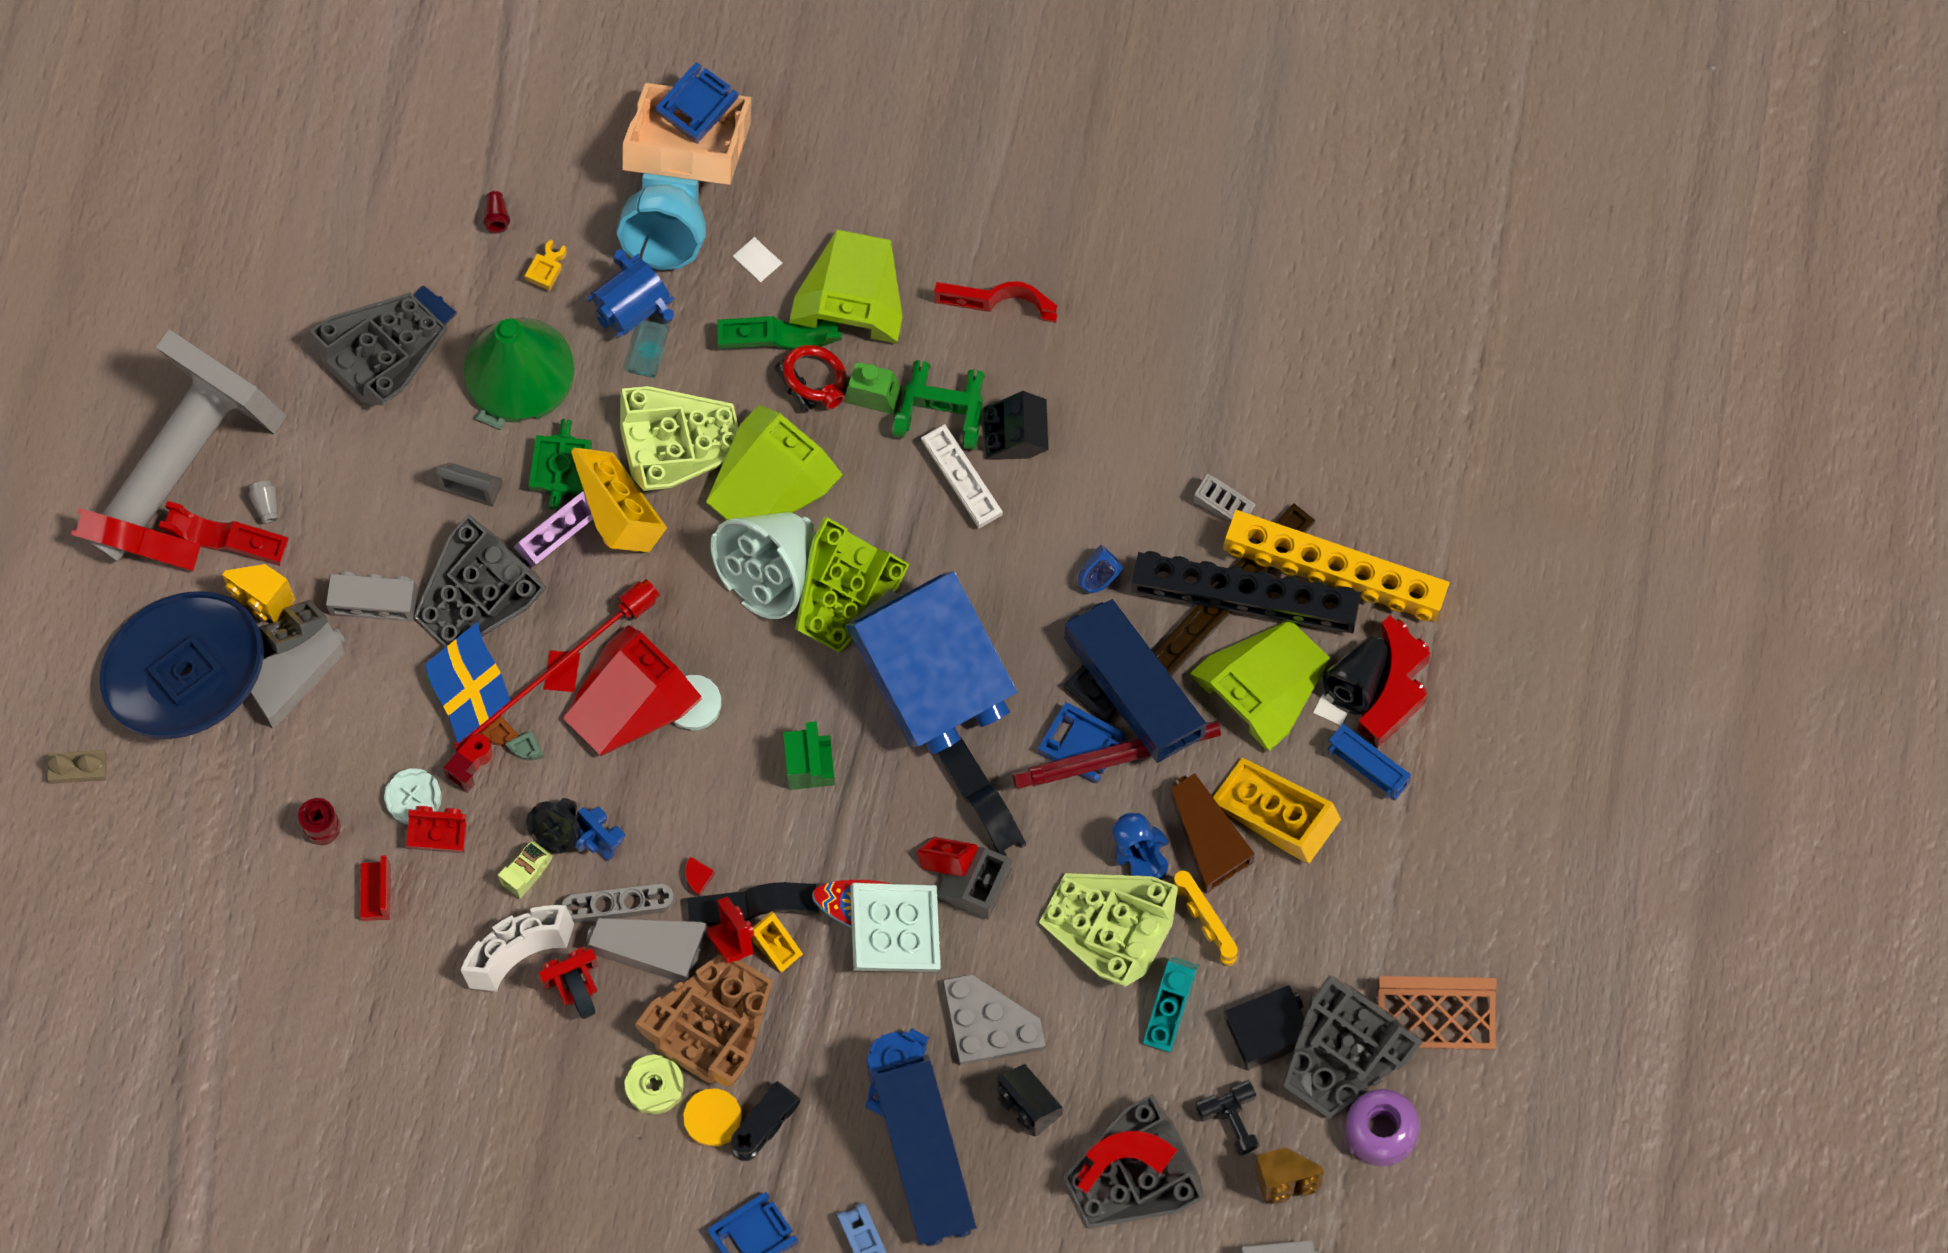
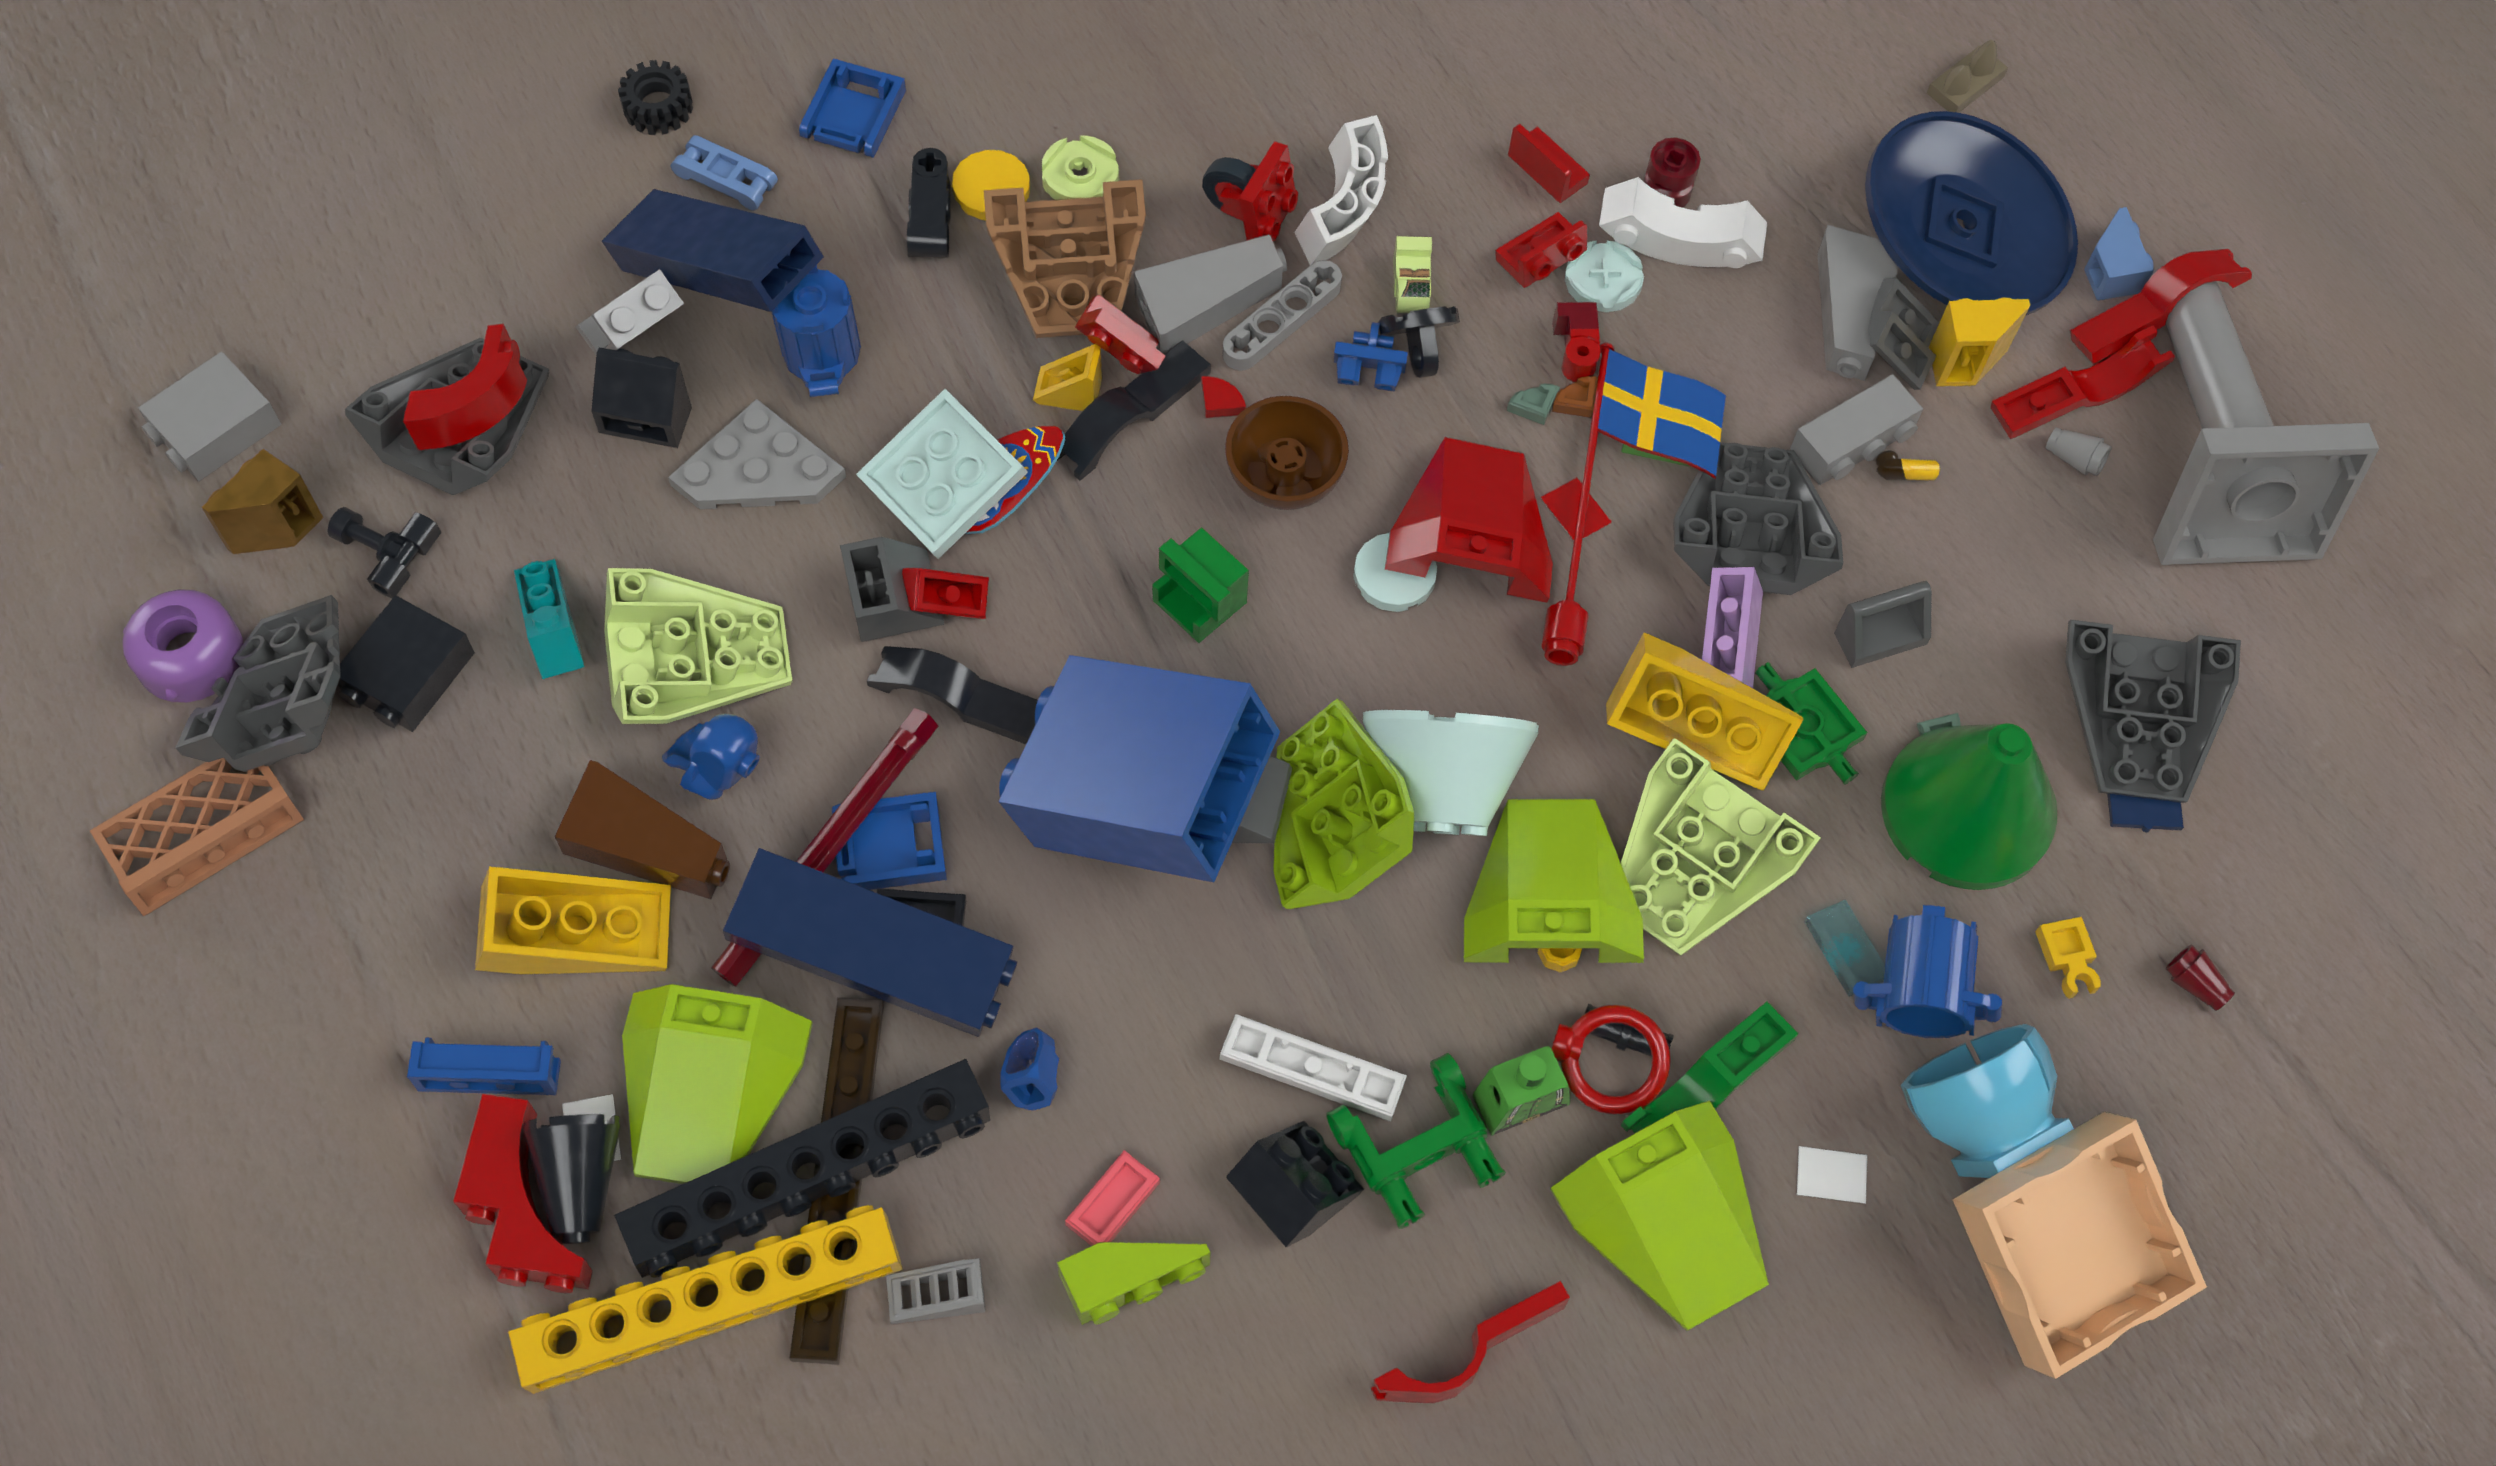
camera: 135 degrees right, 5 degrees down
(122, 591) = (2119, 260): none -> medium blue slope
(349, 784) = (1701, 238): none -> white brick
(367, 557) = (1905, 469): none -> arm
(696, 780) = (1283, 435): none -> reddish brown piece
(699, 98) = (2113, 1312): blue container -> none
(998, 1151) = (630, 313): none -> light grey panel
(1108, 485) = (1112, 1200): none -> coral tile
(1133, 445) = (1119, 1273): none -> lime slope
(1200, 907) = (557, 732): yellow plate -> none

